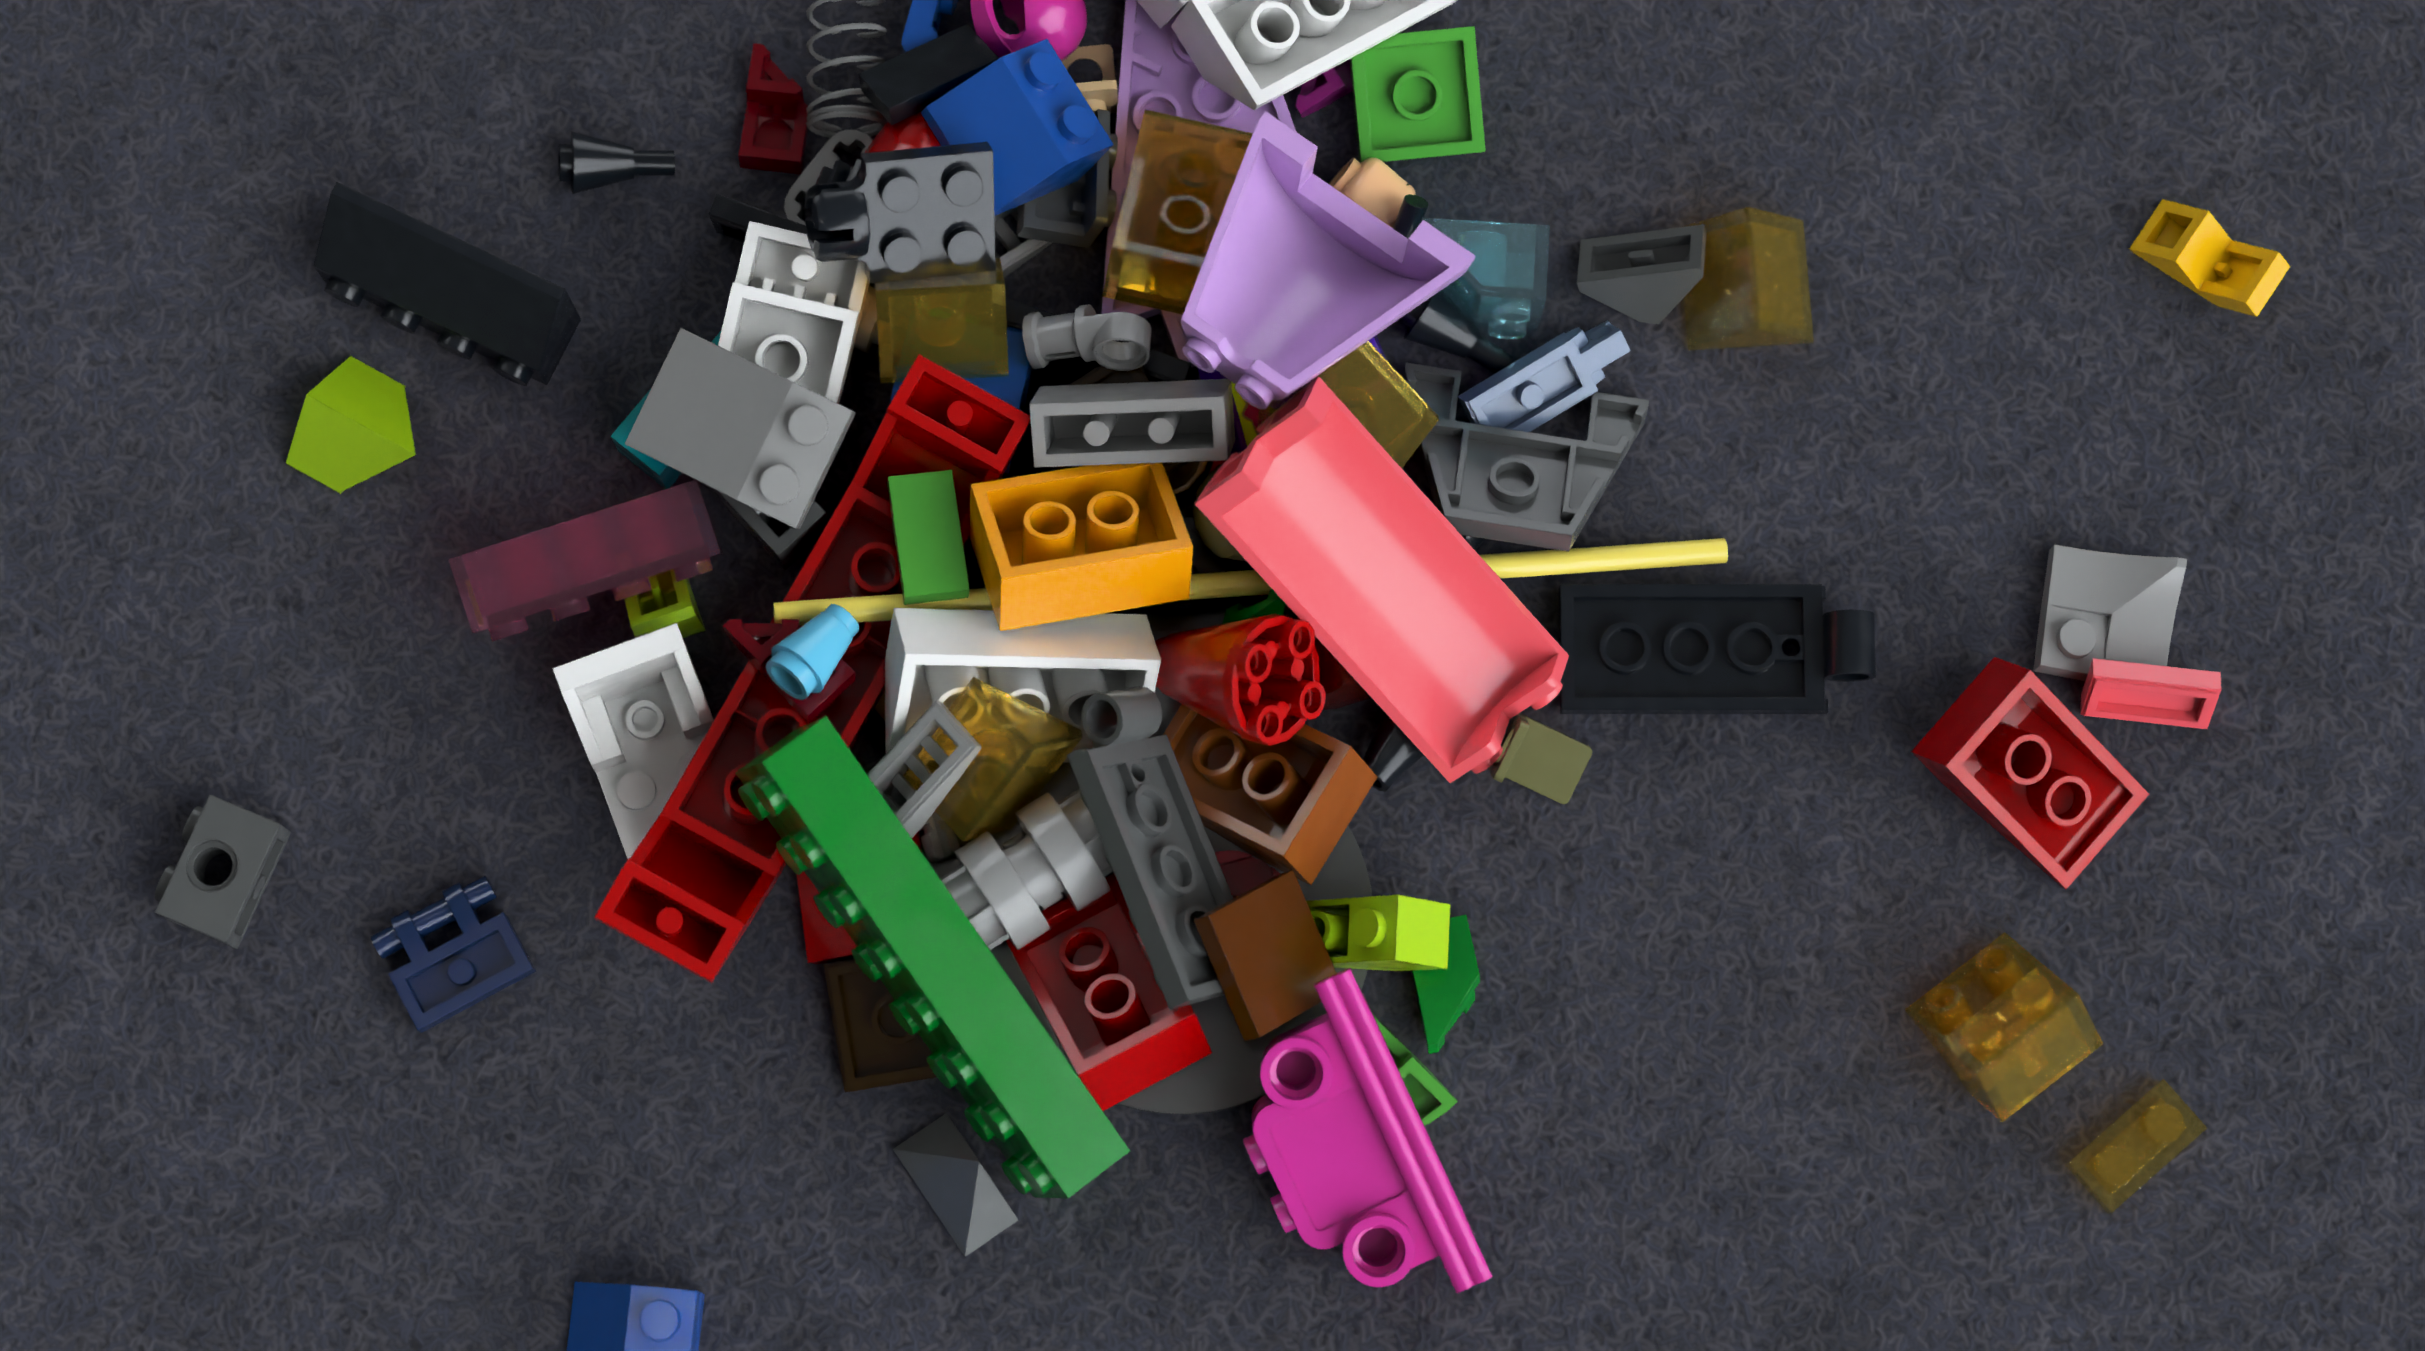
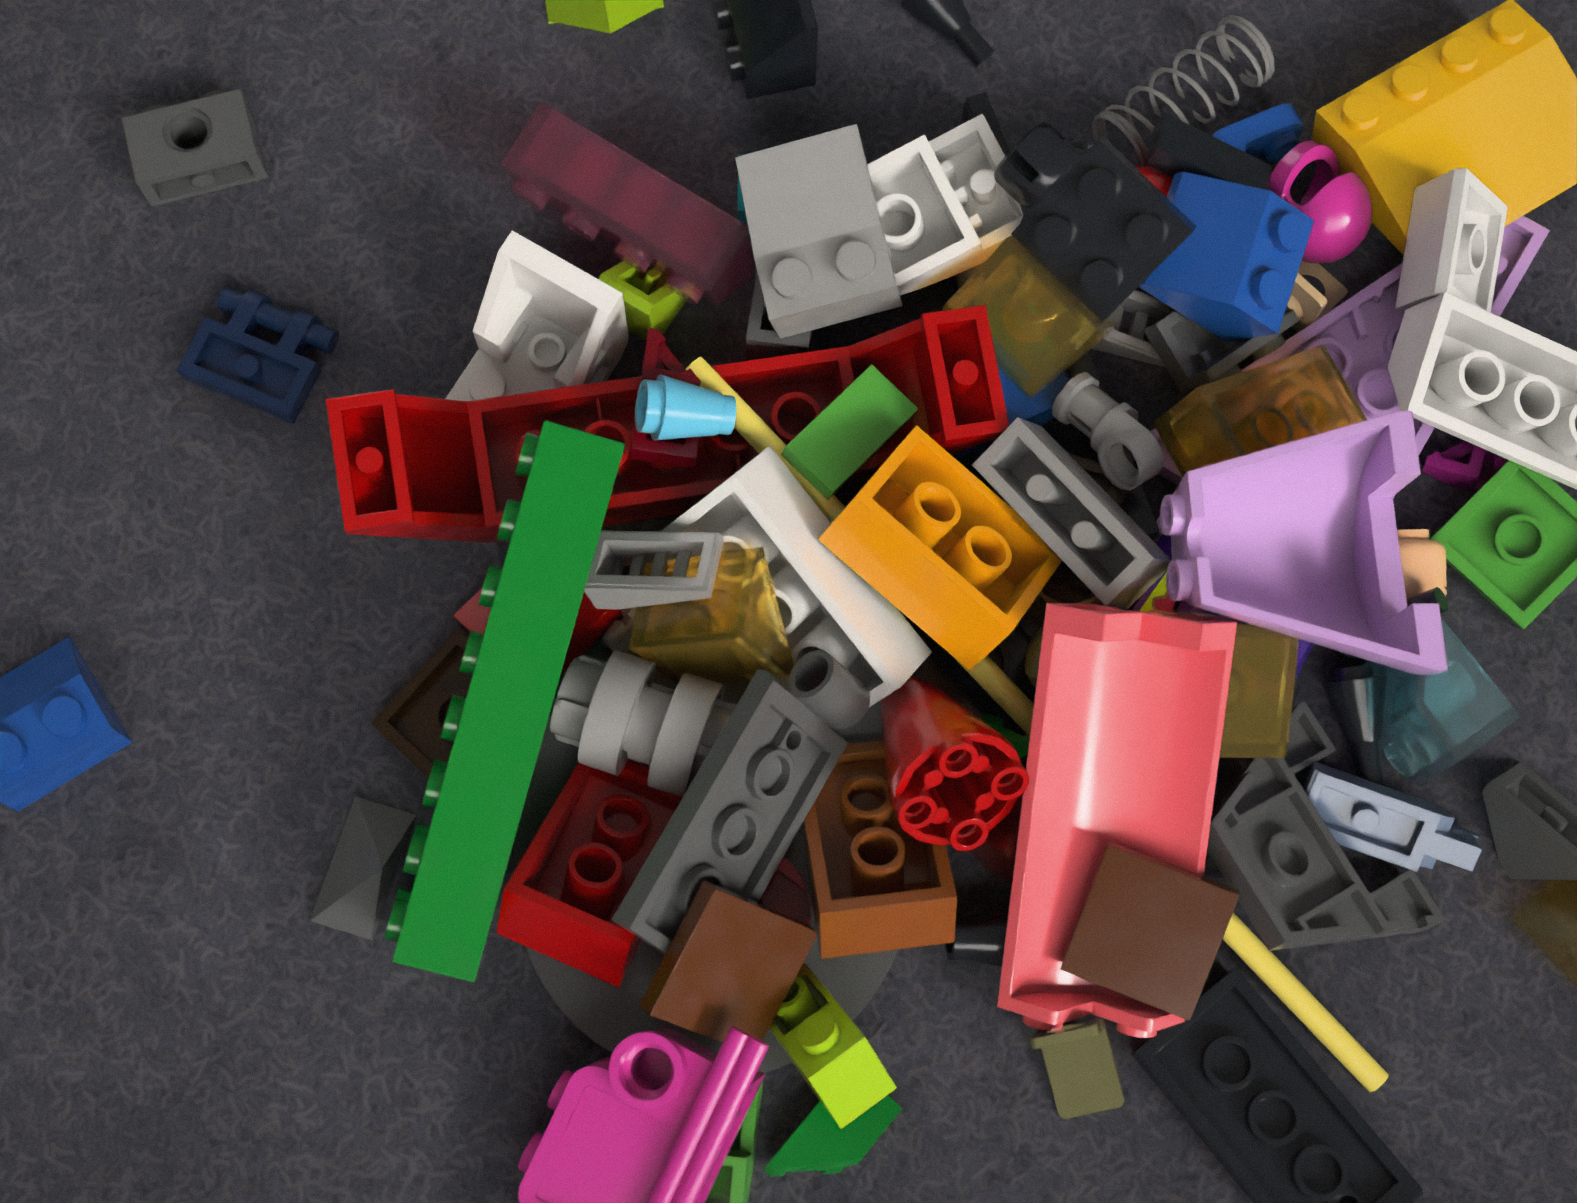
camera: 50 degrees right, 5 degrees down
(774, 118) = (1079, 97): dark red slope -> none
(1484, 625) = (1149, 930): none -> reddish brown tile

